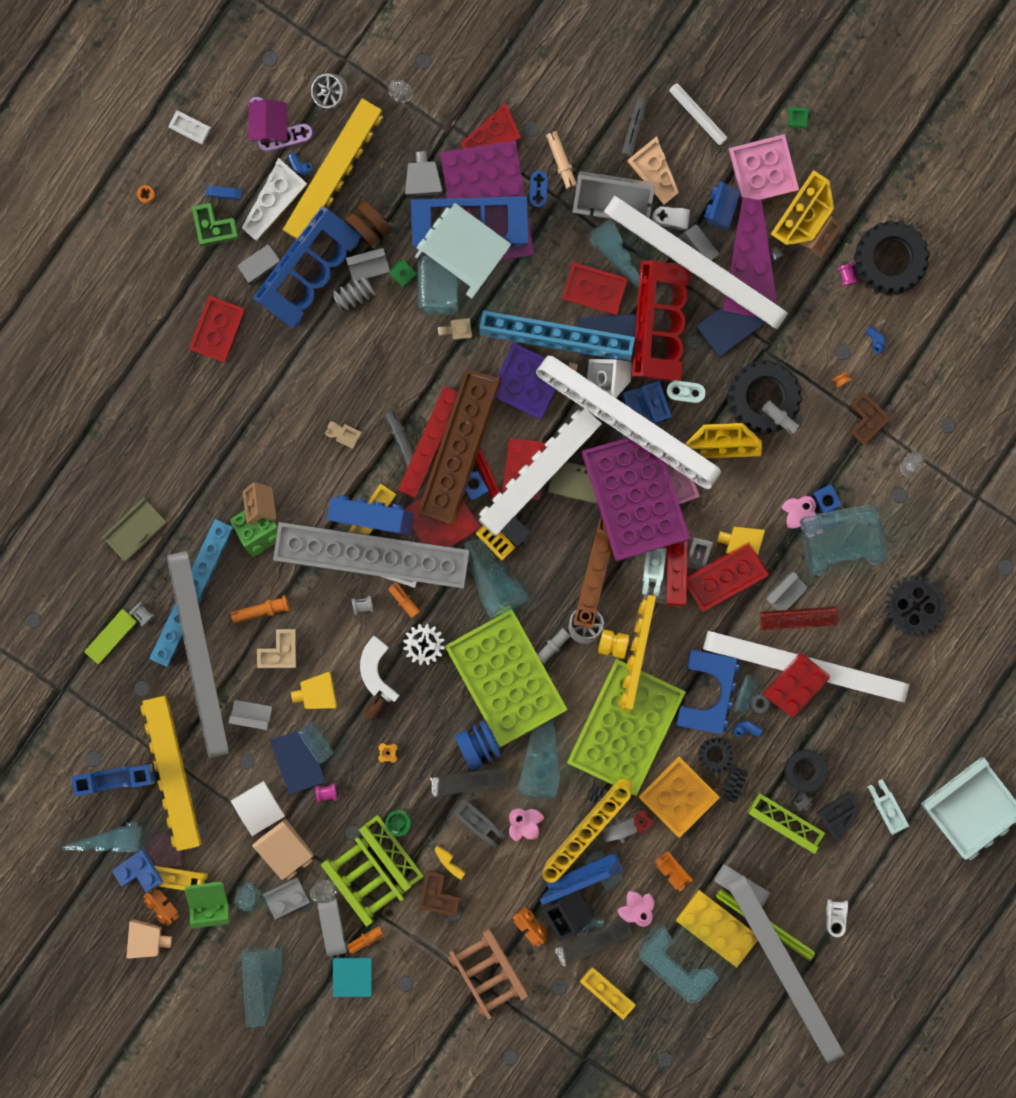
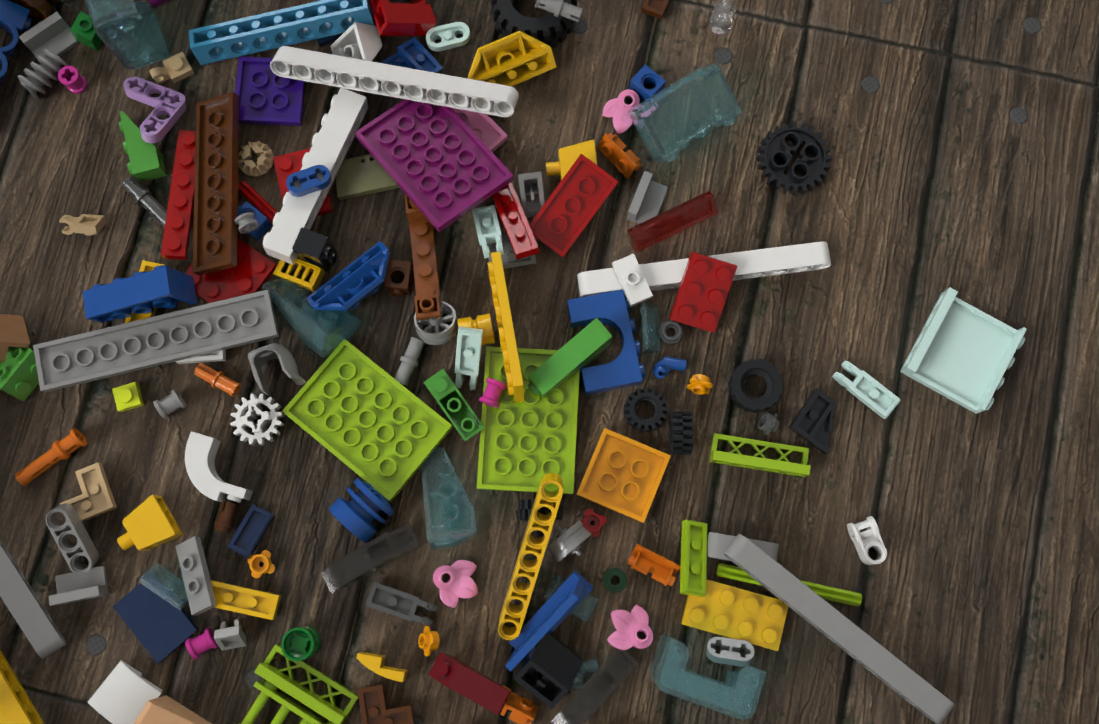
camera: 25 degrees left, 10 degrees down
(260, 689) = (74, 526): none -> light grey beam
(332, 585) = (128, 397): none -> neon yellow plate
(339, 743) = (196, 575): none -> light grey plate
(348, 797) = (230, 637): none -> light grey tile
(364, 773) = (246, 600): none -> yellow plate
(371, 304) = (70, 77): none -> dark pink bush
(389, 726) = (250, 531): none -> dark blue tile
(410, 397) = (145, 159): none -> bright green slope
(440, 362) = (169, 103): none -> lavender beam
(463, 610) = (269, 352): none -> light grey piece
(472, 492) = (246, 222): none -> light grey bush
(489, 858) = (428, 641): none -> light orange plate
(502, 438) = (264, 162): none -> tan gear
(508, 900) = (469, 682): none -> dark red slope
(532, 475) = (308, 180): none -> blue beam
(536, 570) = (354, 282): none -> blue wedge
(570, 568) = (396, 268): none -> reddish brown brick
(574, 693) = (453, 405): none -> bright green slope
(600, 662) = (468, 355): none -> light aqua hinge
(607, 698) = (492, 393): none -> dark pink bush
(636, 865) = (614, 588): none -> dark green plate
(674, 698) = (570, 359): none -> bright green slope
(702, 953) = (730, 651): none -> light grey beam
(704, 878) = (693, 558): none -> lime tile
(746, 655) = (632, 280): none -> white plate
(764, 753) = (700, 384): none -> light orange plate
(782, 554) = (613, 149): none -> orange hinge

